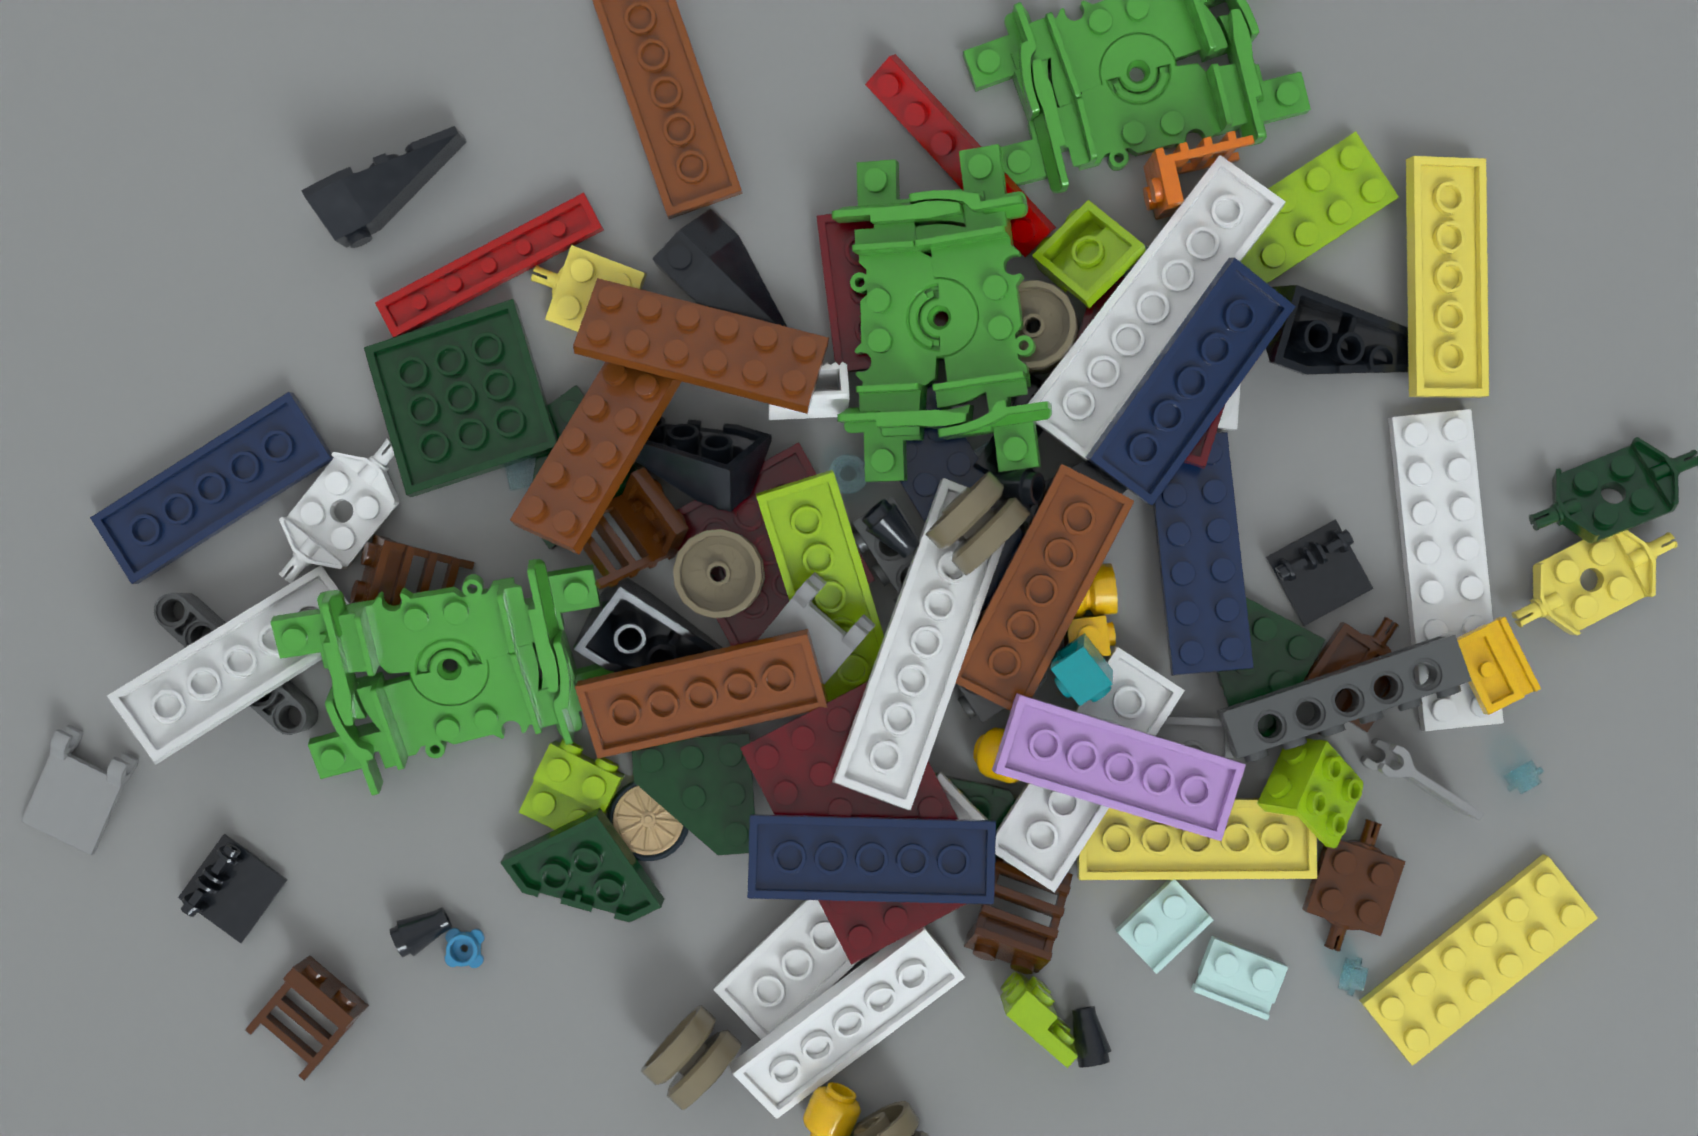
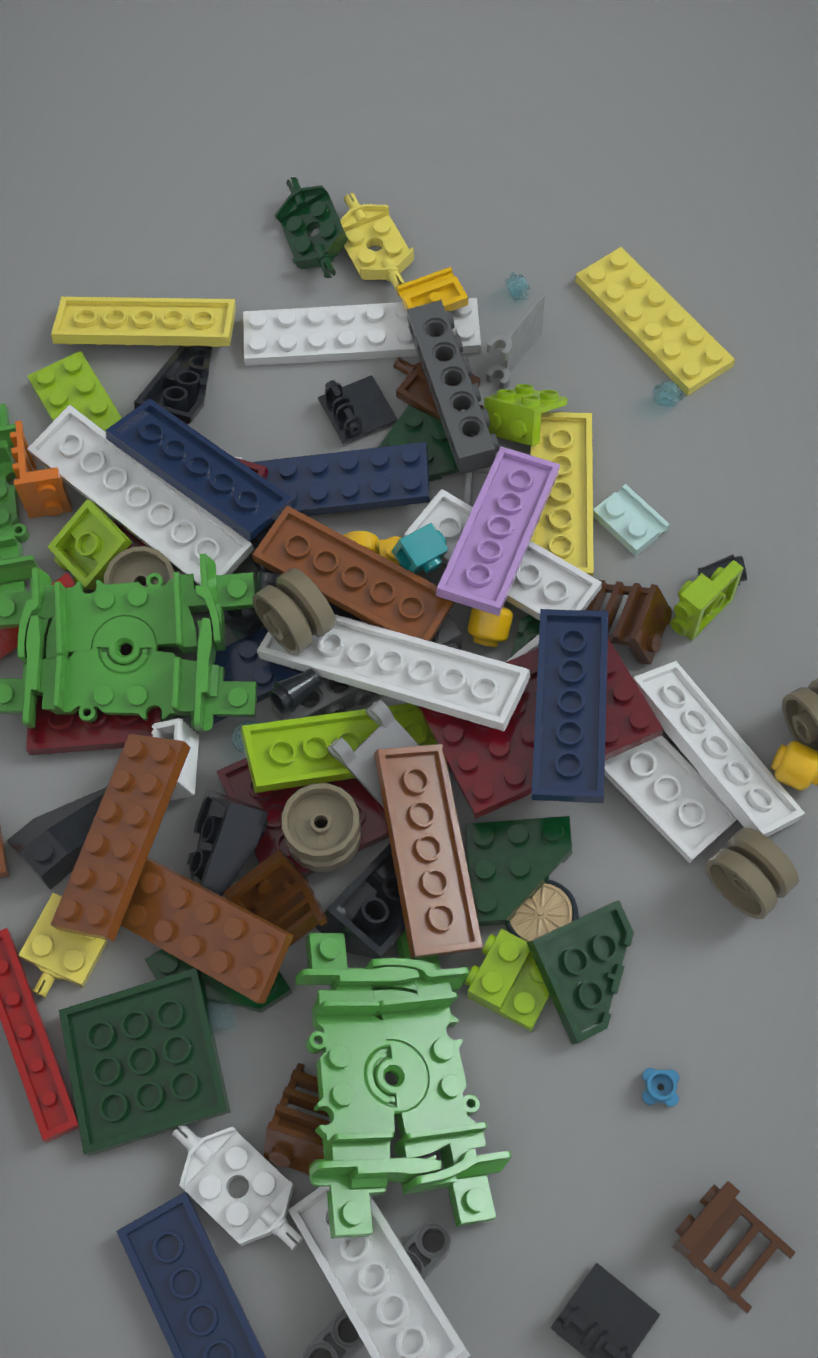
camera: 80 degrees left, 25 degrees down
(419, 931) = (646, 1130): black cone -> none
(1239, 977) = (671, 470): light aqua plate -> none
(1354, 886) = (600, 392): reddish brown plate -> none

